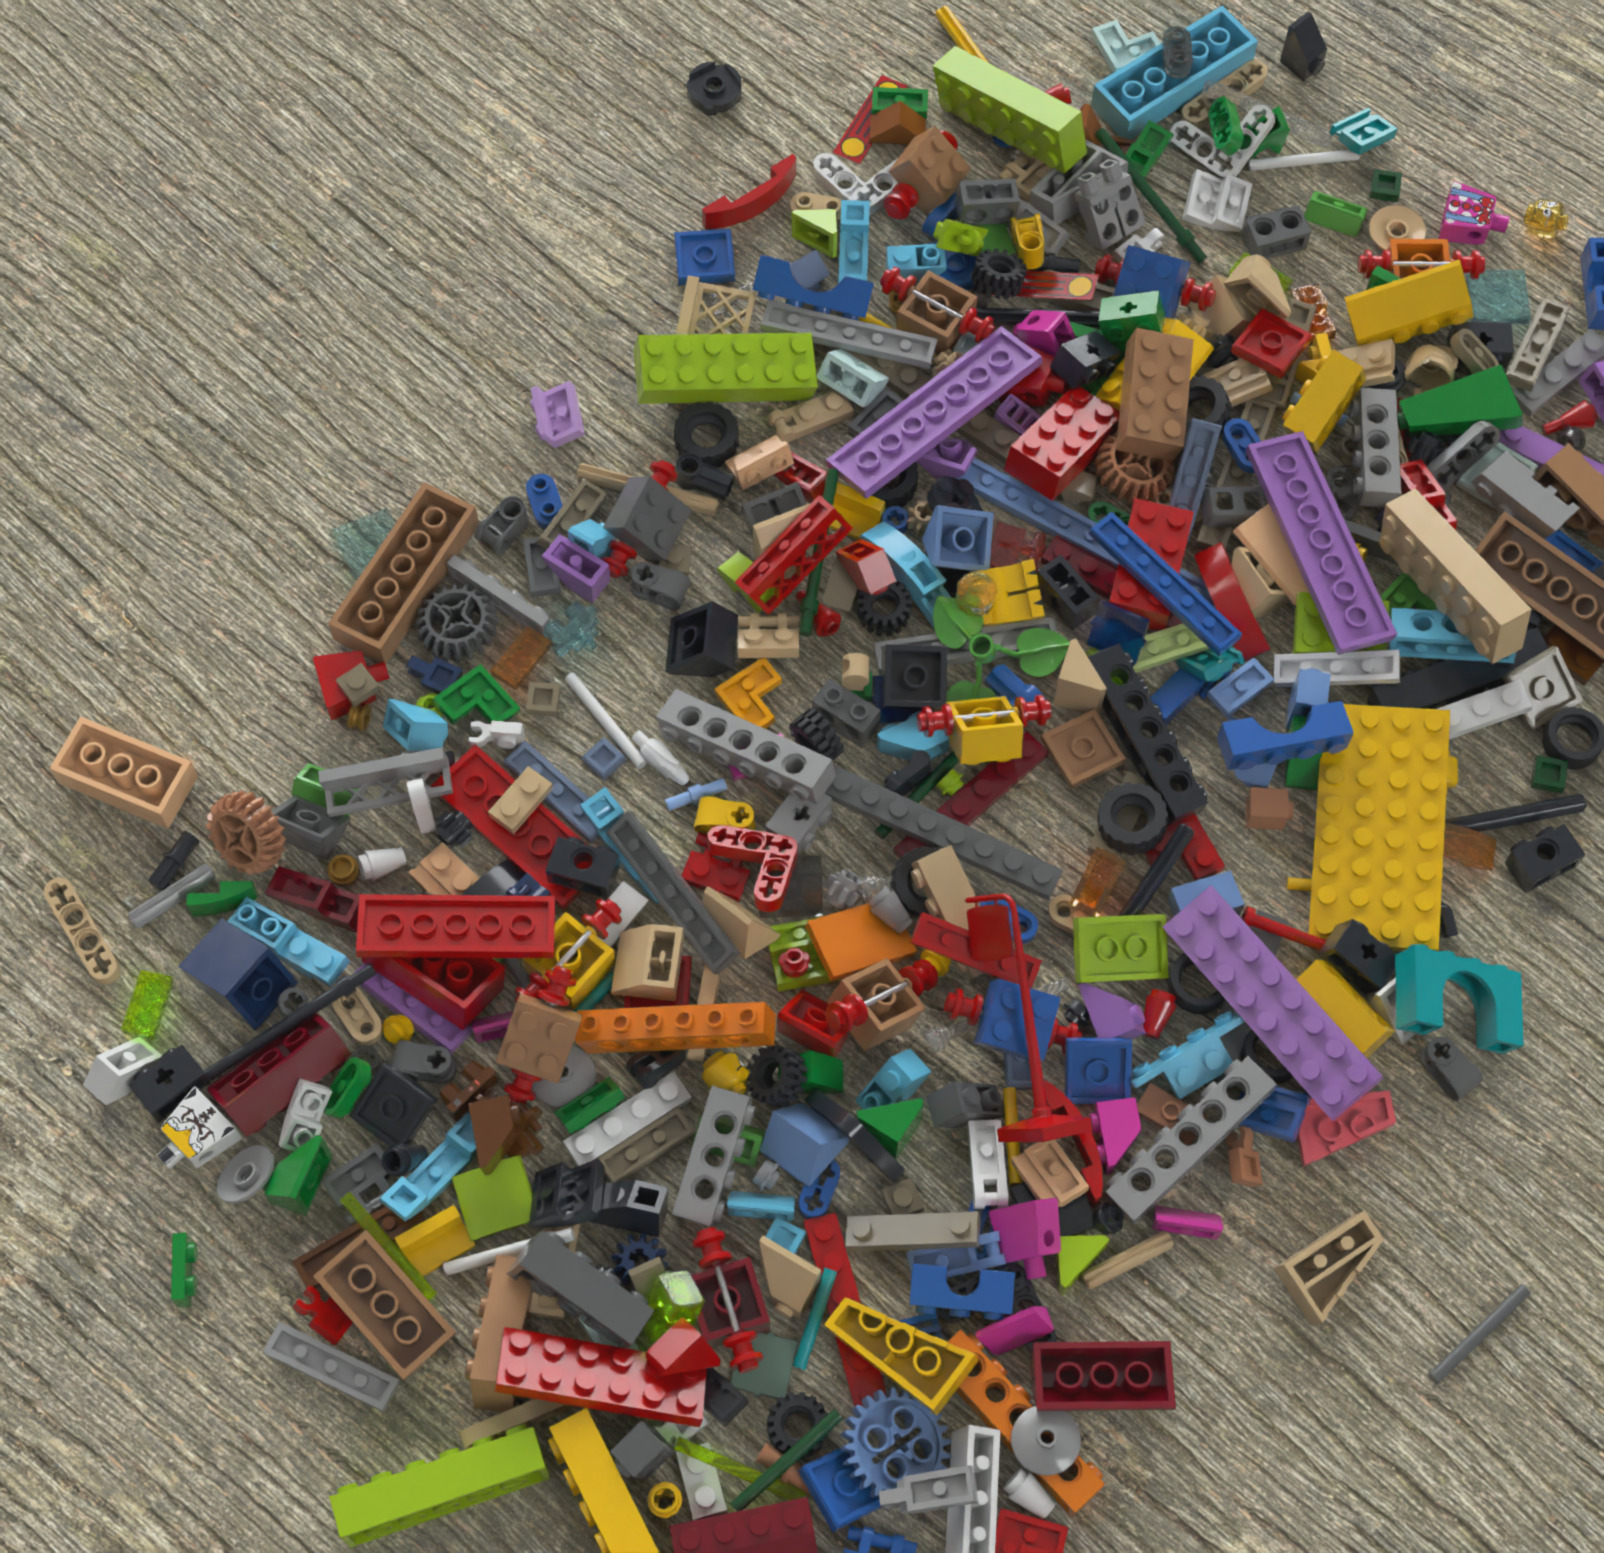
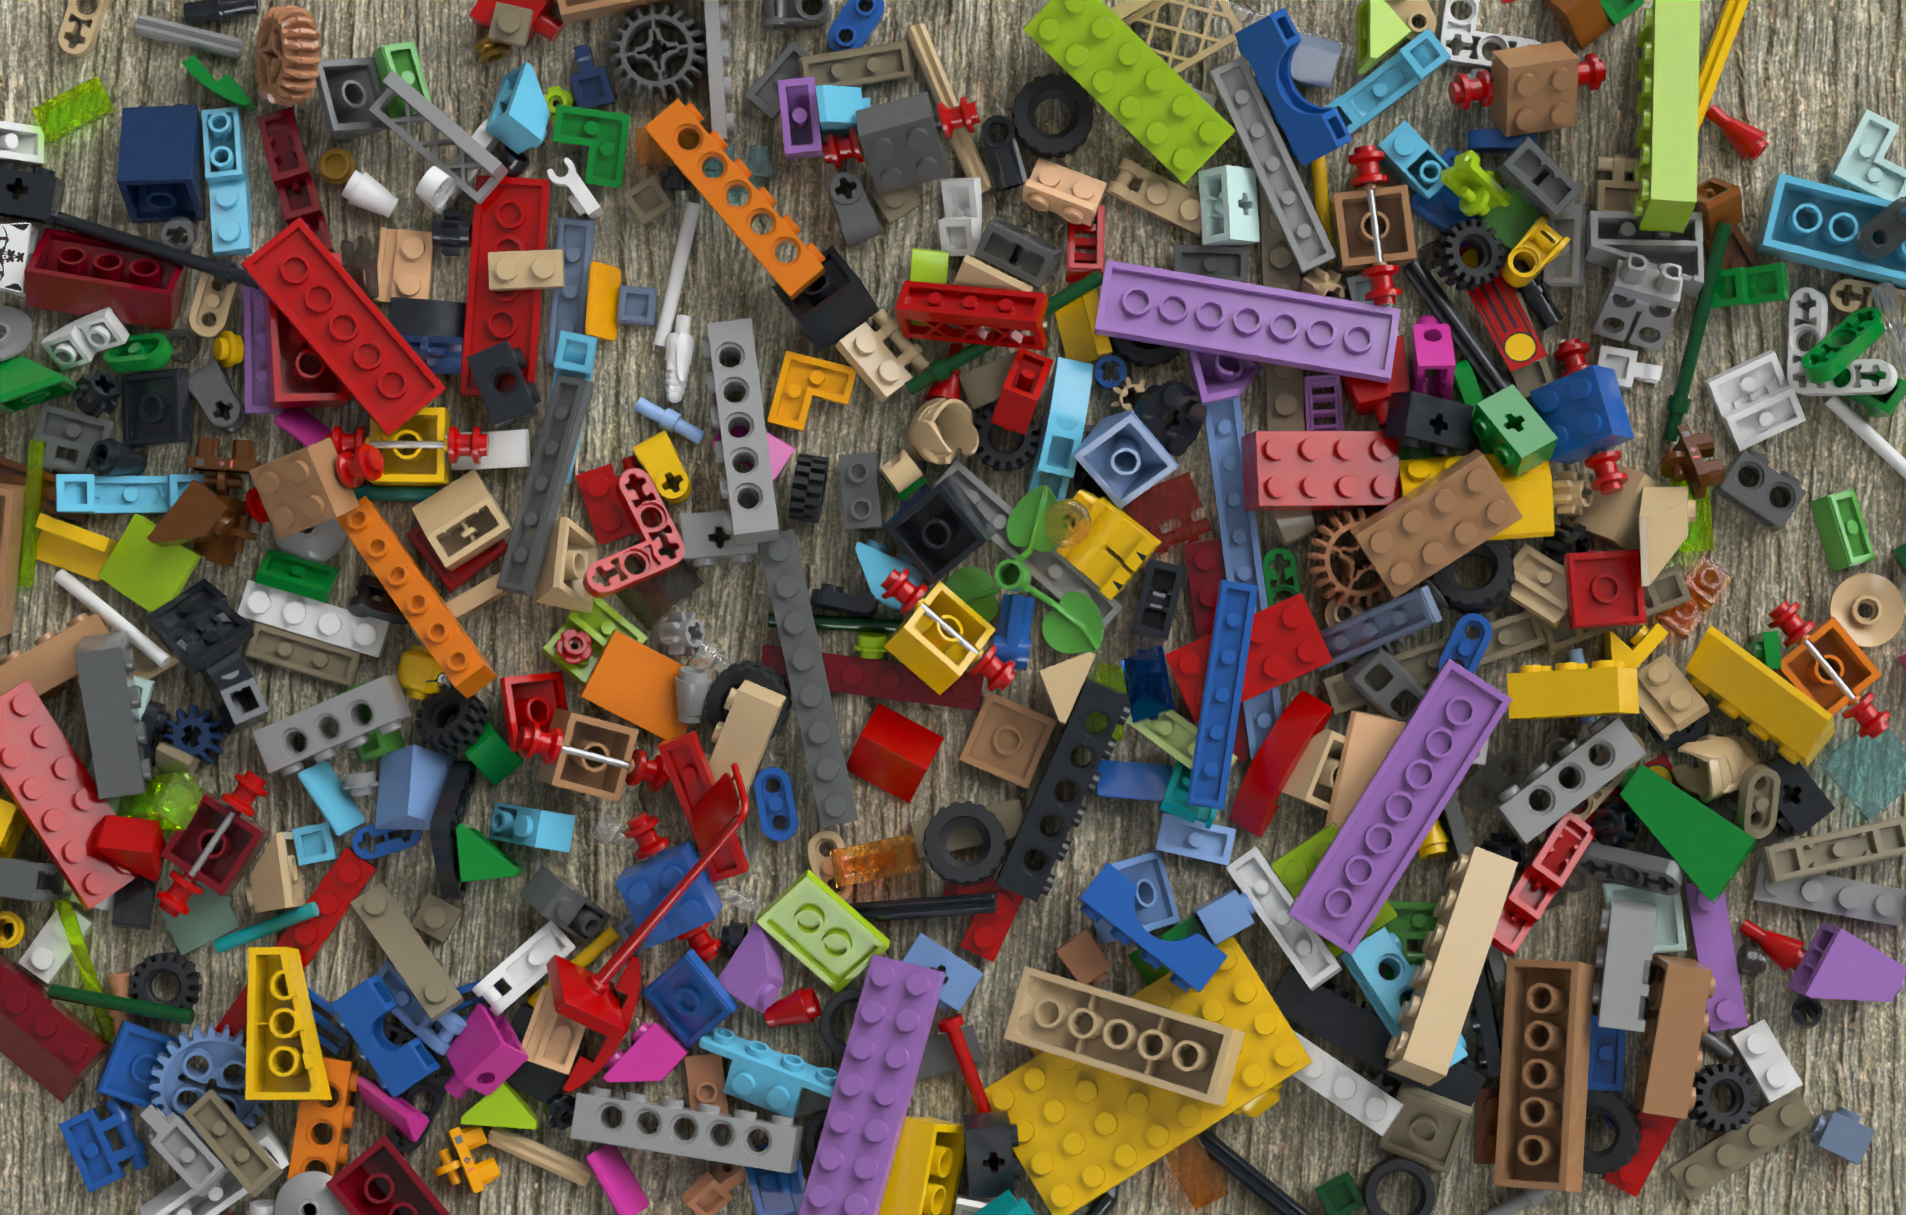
camera: 55 degrees right, 20 degrees up
(348, 1138) = (97, 394): none -> black gear
(545, 670) = (674, 179): none -> black plate
(579, 773) = (602, 301): none -> light orange slope
(580, 645) = (667, 131): none -> orange brick
(721, 528) = (963, 216): none -> white slope
(846, 633) = (940, 431): none -> tan helmet
(956, 1449) = (233, 1143): none -> dark tan plate
(1035, 823) = (894, 753): none -> red slope
(1090, 1312) = (476, 1174): none -> light orange hips
(1228, 250) = (1687, 462): none -> reddish brown hips
(1345, 806) = (1125, 1036): none -> tan slope

